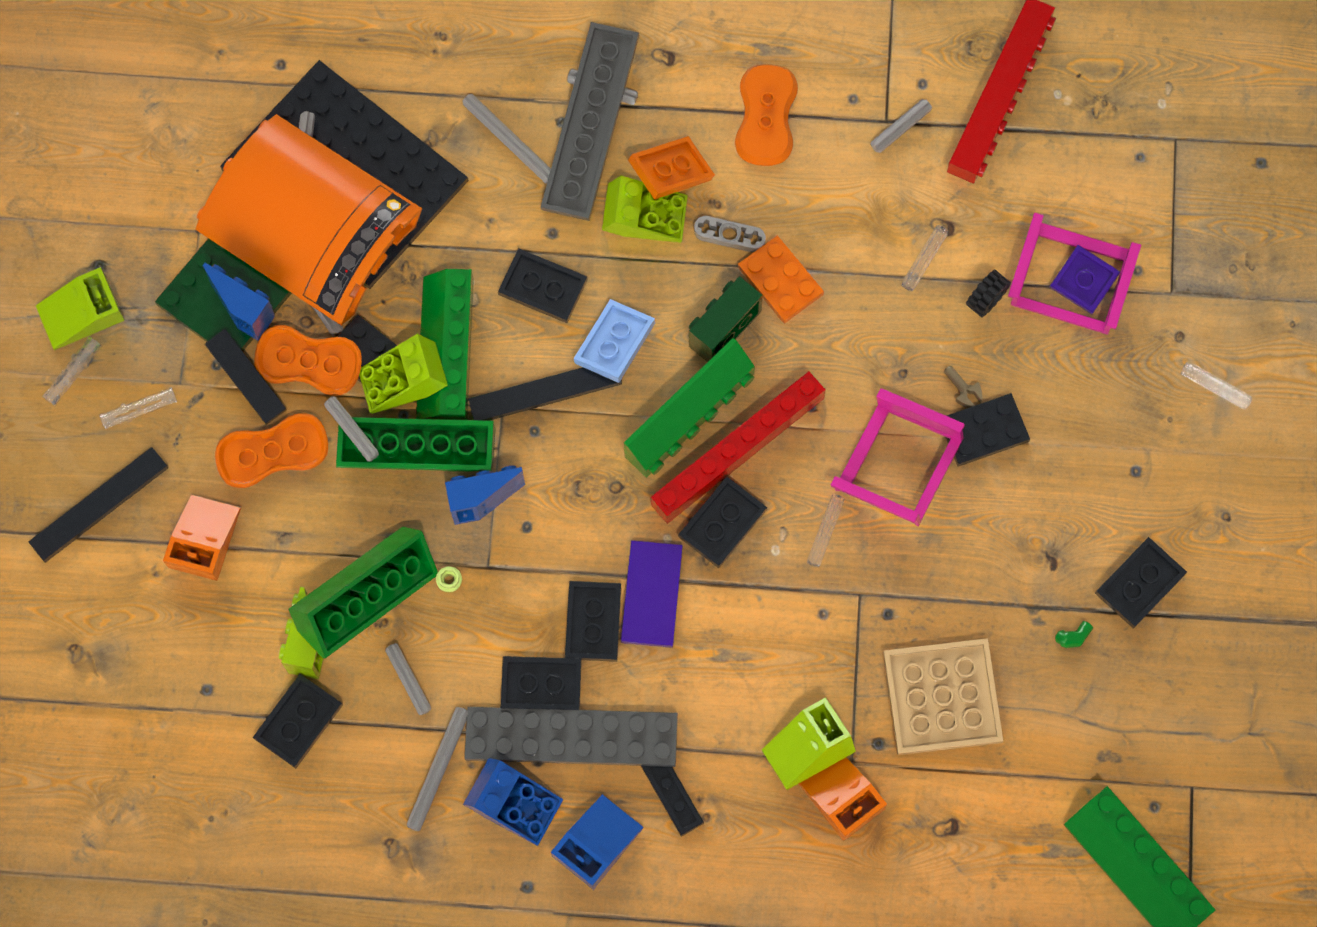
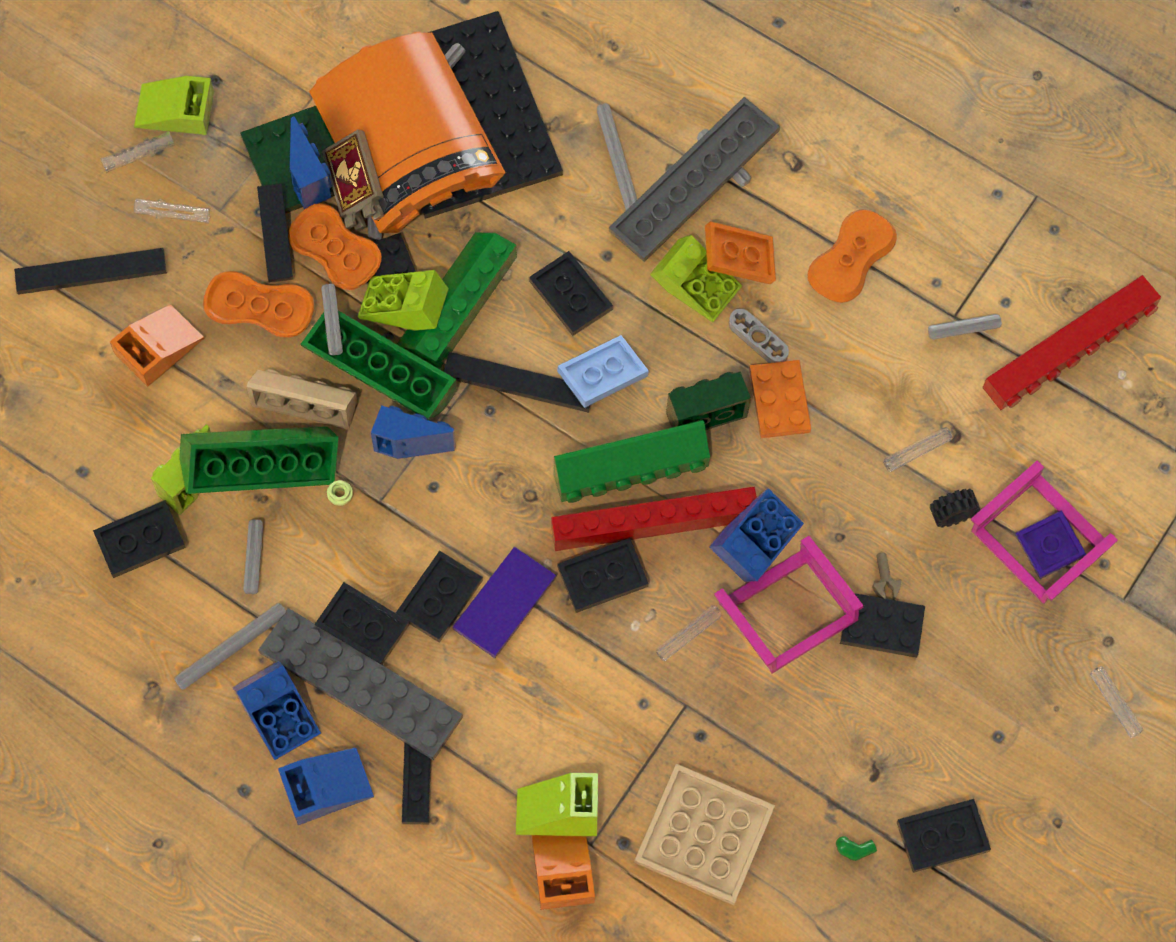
camera: 25 degrees right, 5 degrees down
(289, 289) = (354, 179): none -> tile
(365, 513) = (302, 398): none -> tan slope
(836, 414) = (756, 536): none -> blue slope

